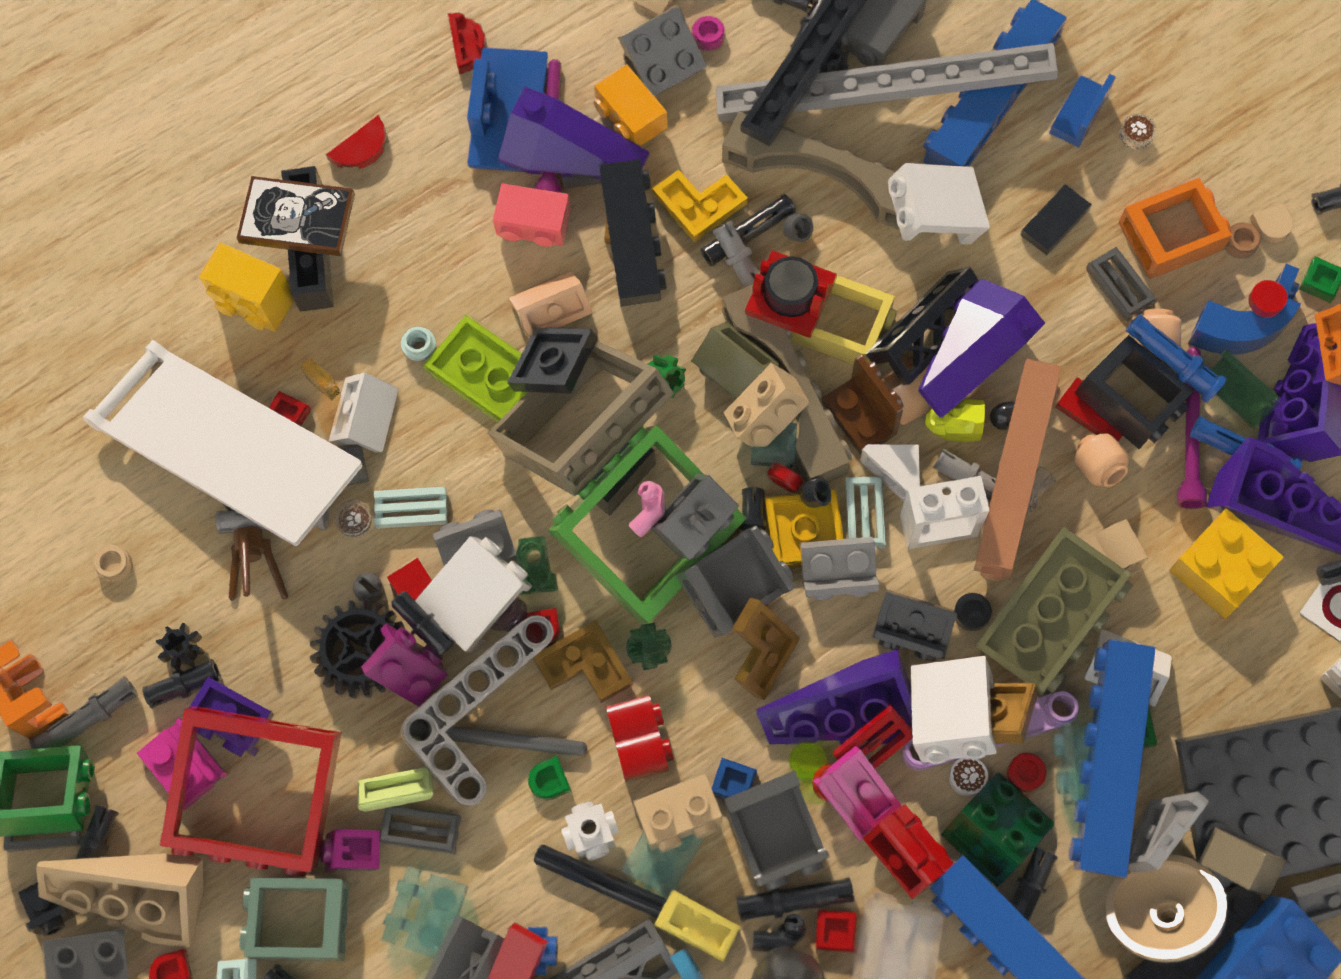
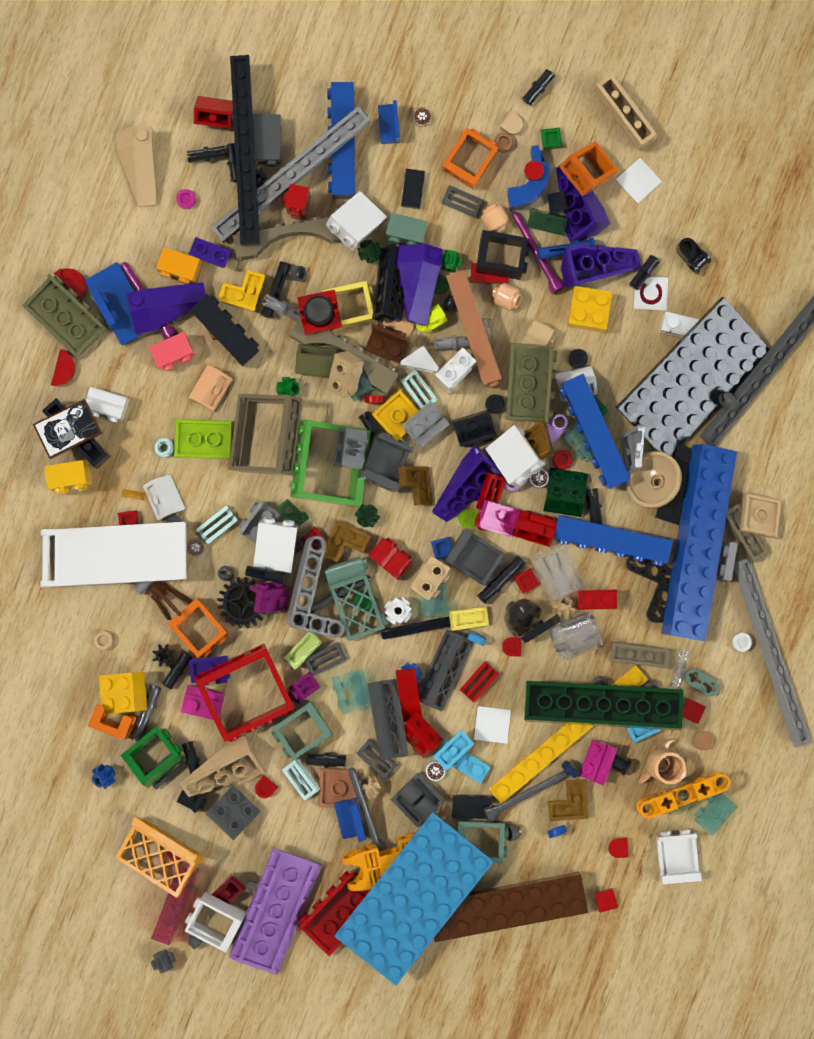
camera: 35 degrees left, 15 degrees up
(72, 657) = (123, 692): none -> yellow brick
(261, 606) = (187, 612): none -> orange window
(383, 229) = (107, 404): none -> white brick
(410, 578) = (243, 557): red tile -> none
(419, 76) = (64, 315): none -> olive bracket
(550, 714) = (344, 574): none -> sand green piece
(552, 360) = (234, 416): black tile -> none
(652, 508) = (331, 458): bright pink arm -> none
(662, 51) = (173, 227): dark grey plate -> none
(691, 117) = (210, 252): none -> dark purple bracket
(788, 935) = (507, 597): black arm -> none
(816, 487) = (393, 394): black hinge -> none
(869, 122) = (297, 201): none -> red brick
(928, 261) = (369, 251): none -> clear green gear
(1005, 379) = (441, 285): none -> green tile
(1006, 262) = (405, 230): none -> sand green brick
(1046, 348) = (450, 261): none -> green gear
(1156, 630) = (578, 358): none -> black tile
(1188, 367) = (518, 228): blue pin -> none
(1242, 862) = (673, 440): dark tan slope -> none
(1278, 372) = (558, 202): none -> black tile

